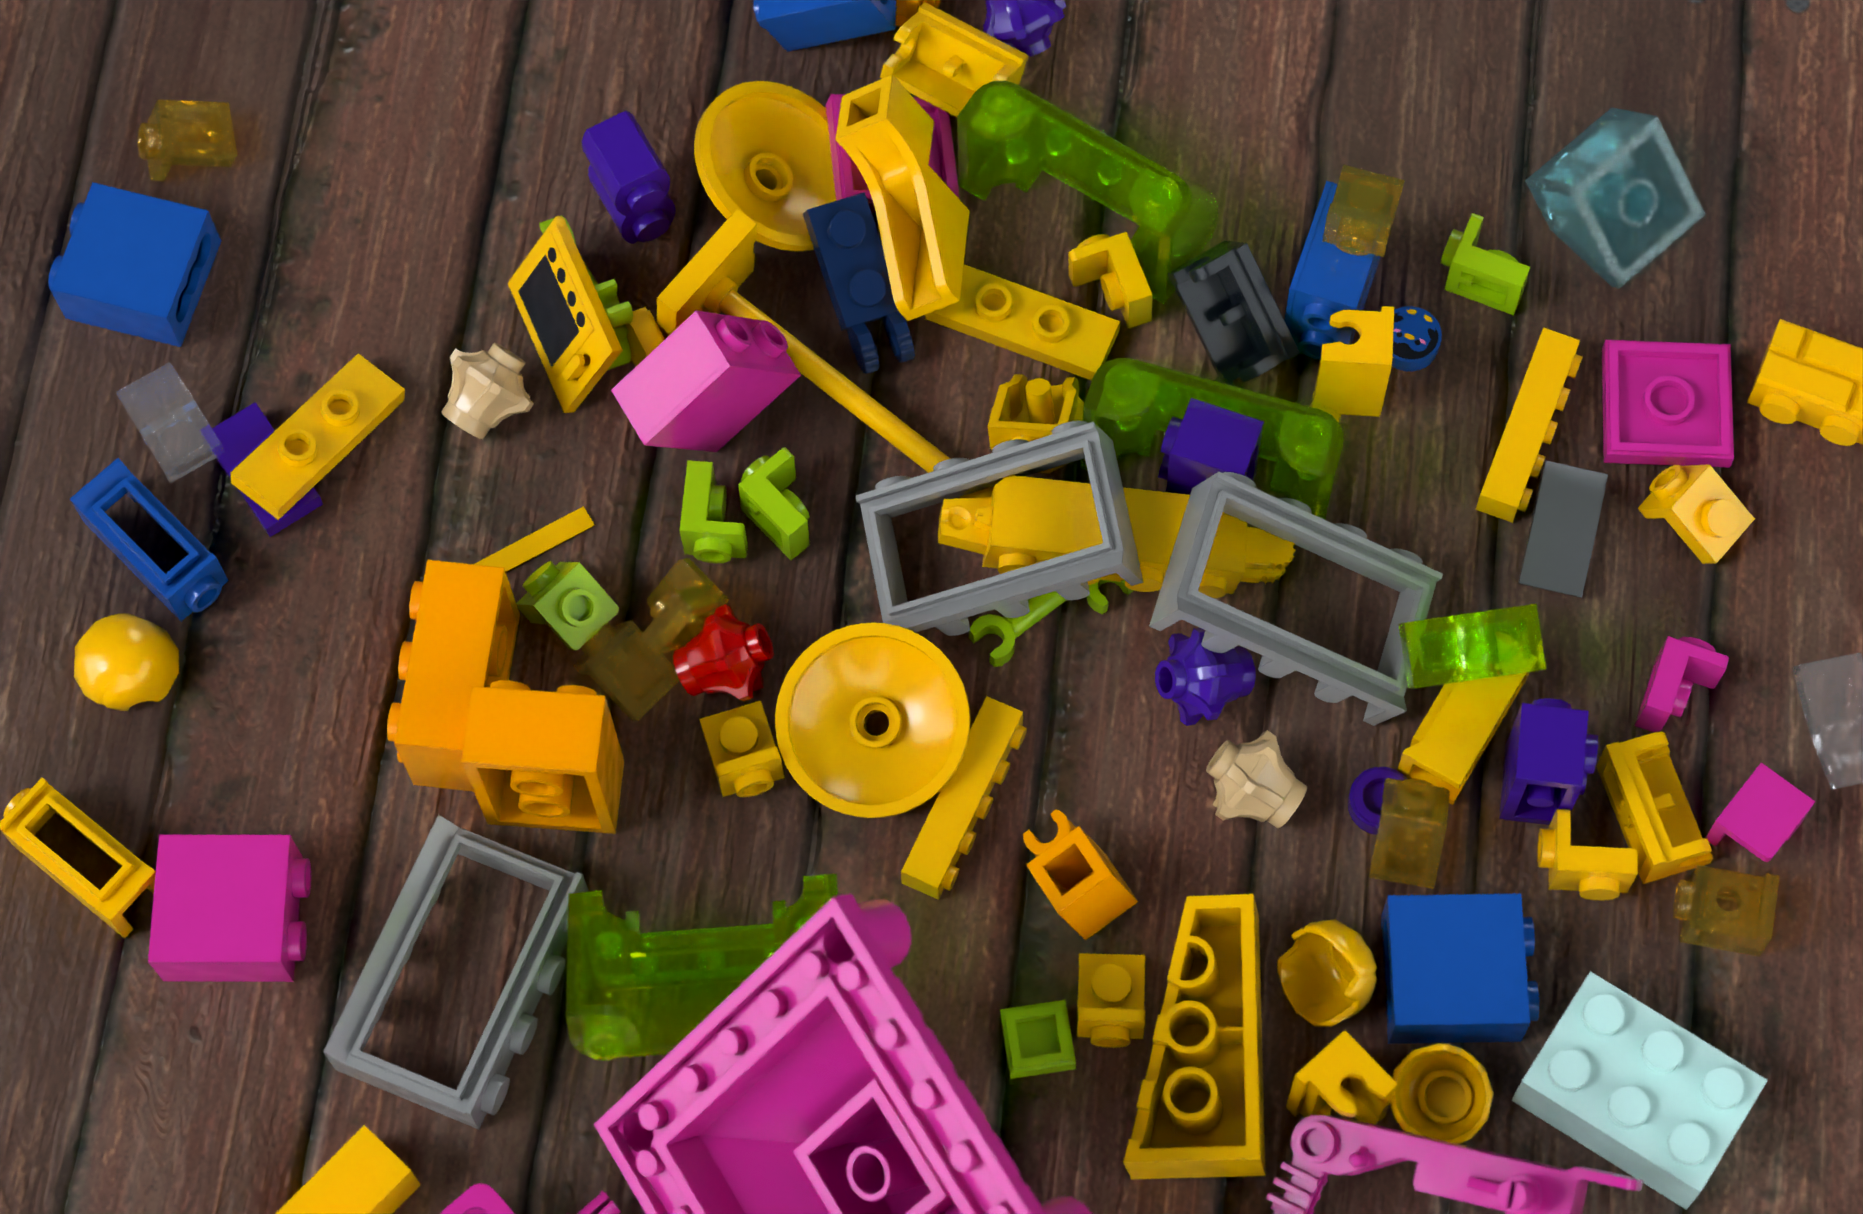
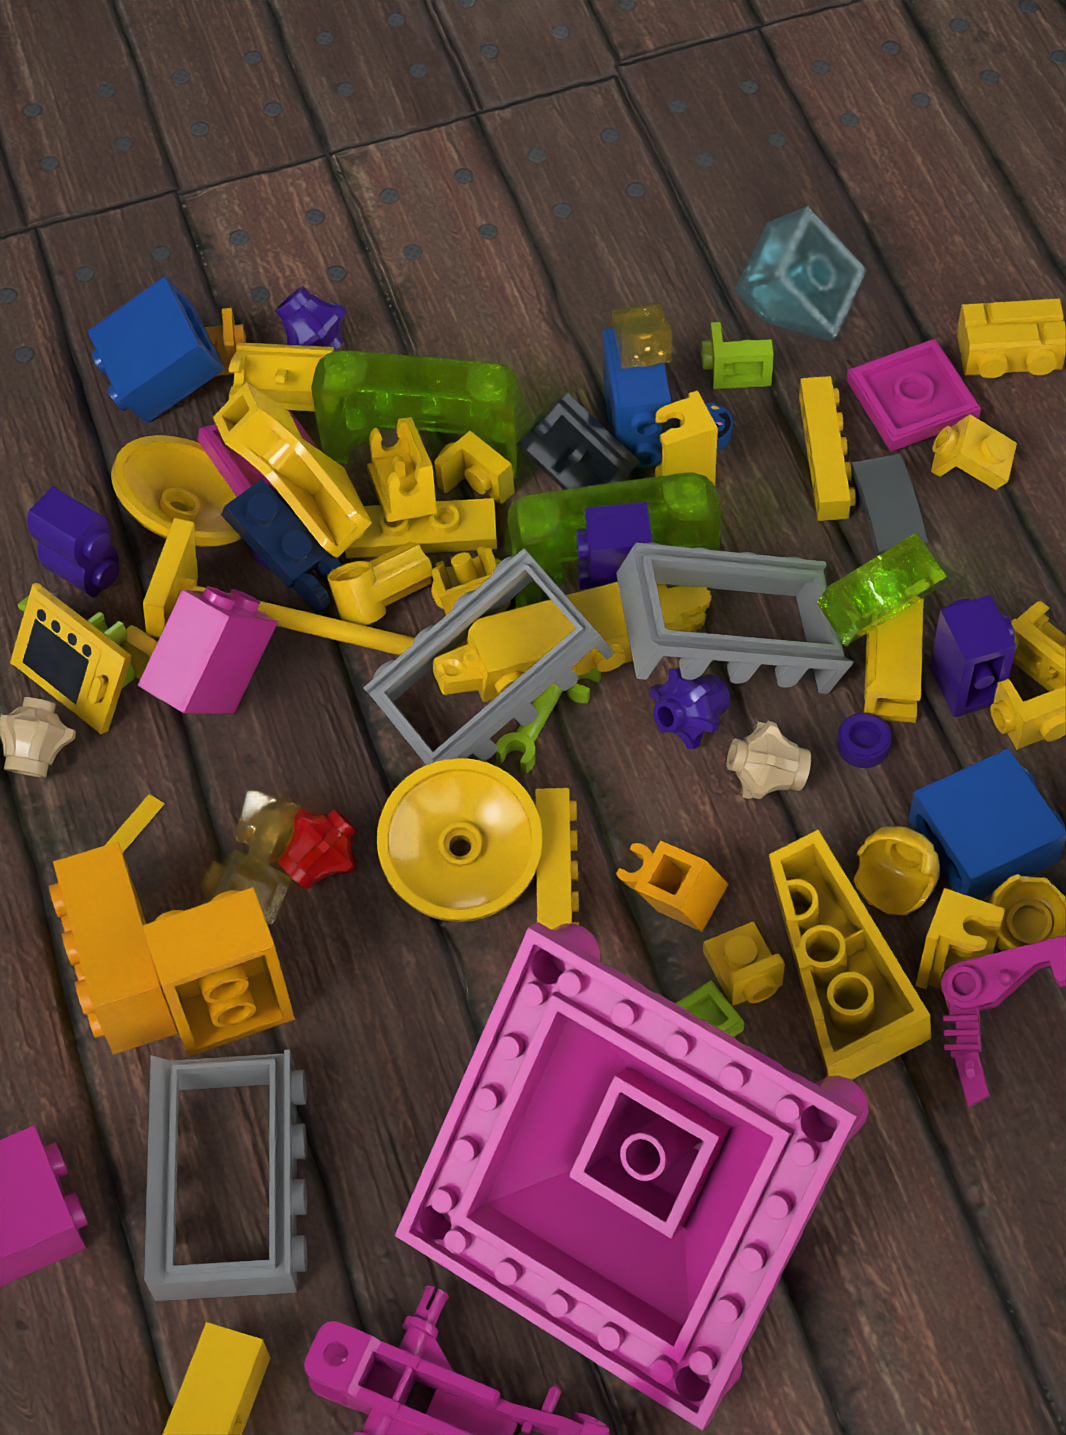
camera: 25 degrees left, 10 degrees down
(567, 602) = (173, 857): lime bracket -> none
(652, 989) = (403, 1100): clear neon green windscreen -> none
(703, 516) = (255, 765): lime bracket -> none
(742, 750) = (366, 912): yellow bracket -> none
(771, 507) = (301, 730): lime bracket -> none
(921, 372) = (366, 587): none -> yellow piece
(1025, 251) = (402, 474): none -> yellow hinge
(1410, 832) = (901, 748): clear yellow bracket -> none
(1672, 677) = (1024, 566): dark pink bracket -> none

